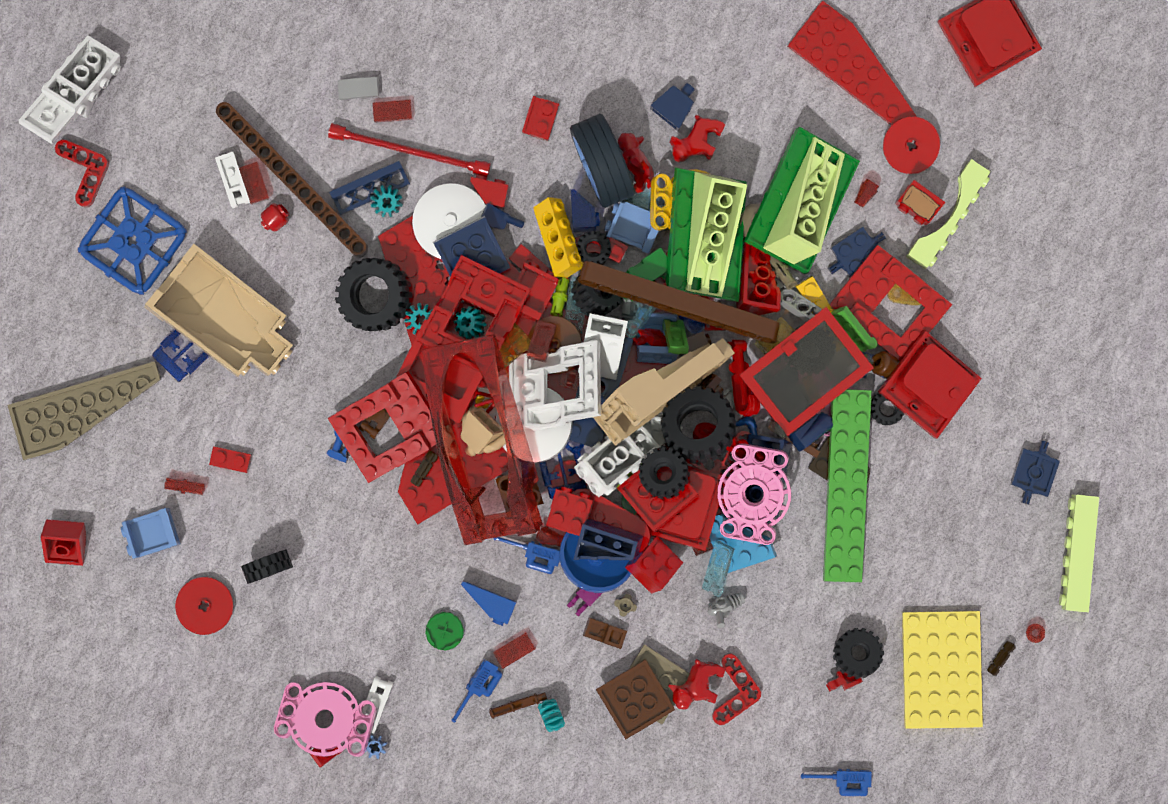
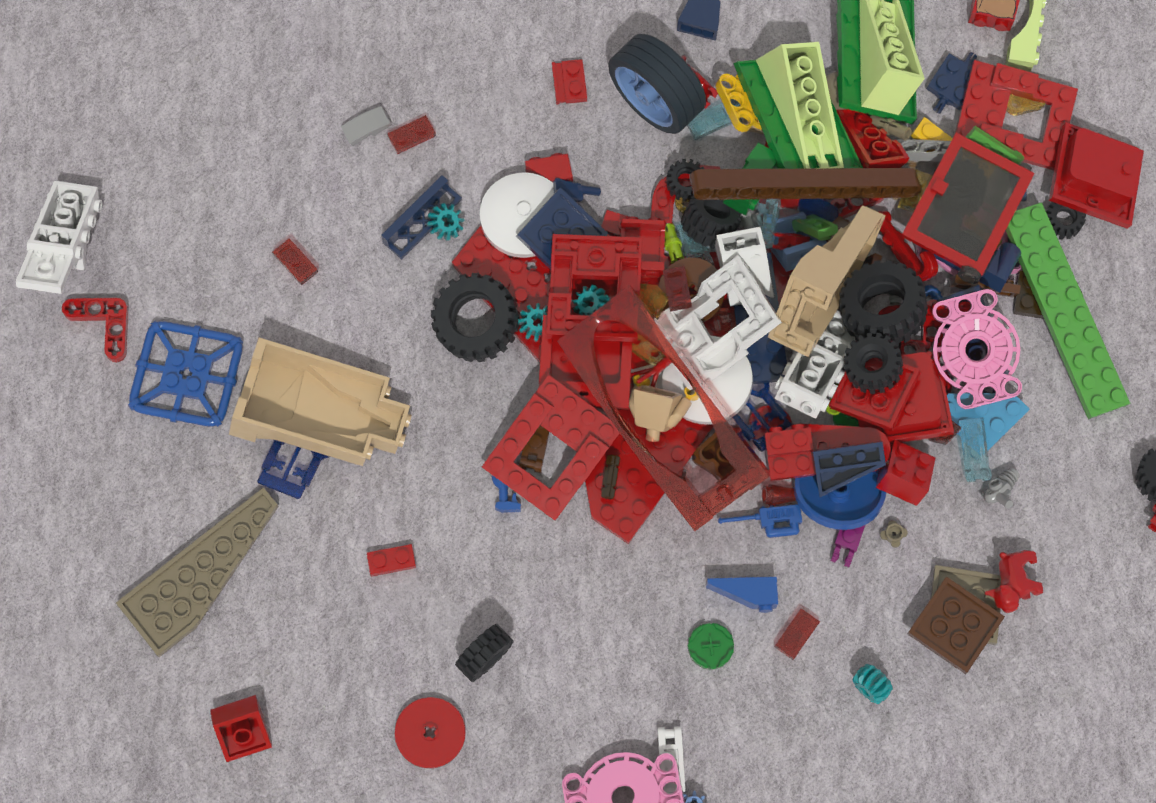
camera: 25 degrees left, 15 degrees down
(150, 533) = (335, 677): medium blue panel -> none
(184, 486) = (352, 609): clear red pin -> none
(232, 179) = (270, 267): white plate -> none
(274, 217) = (332, 286): red head -> none
(287, 171) = (327, 234): reddish brown beam -> none
(340, 133) = (365, 176): red hose -> none
(476, 683) = (773, 684): blue piece -> none
(516, 705) = (828, 692): reddish brown piece -> none
(558, 237) = (631, 173): yellow brick -> none
(583, 213) = (657, 149): clear blue slope -> none
(604, 633) = (886, 573): reddish brown slope -> none
(632, 225) = (716, 143): medium blue panel -> none
(696, 141) = (741, 37): red animal -> none
(742, 695) = (1066, 575): red beam -> none
(866, 192) = (935, 19): clear red cone -> none
(884, 364) = (1043, 175): reddish brown head -> none

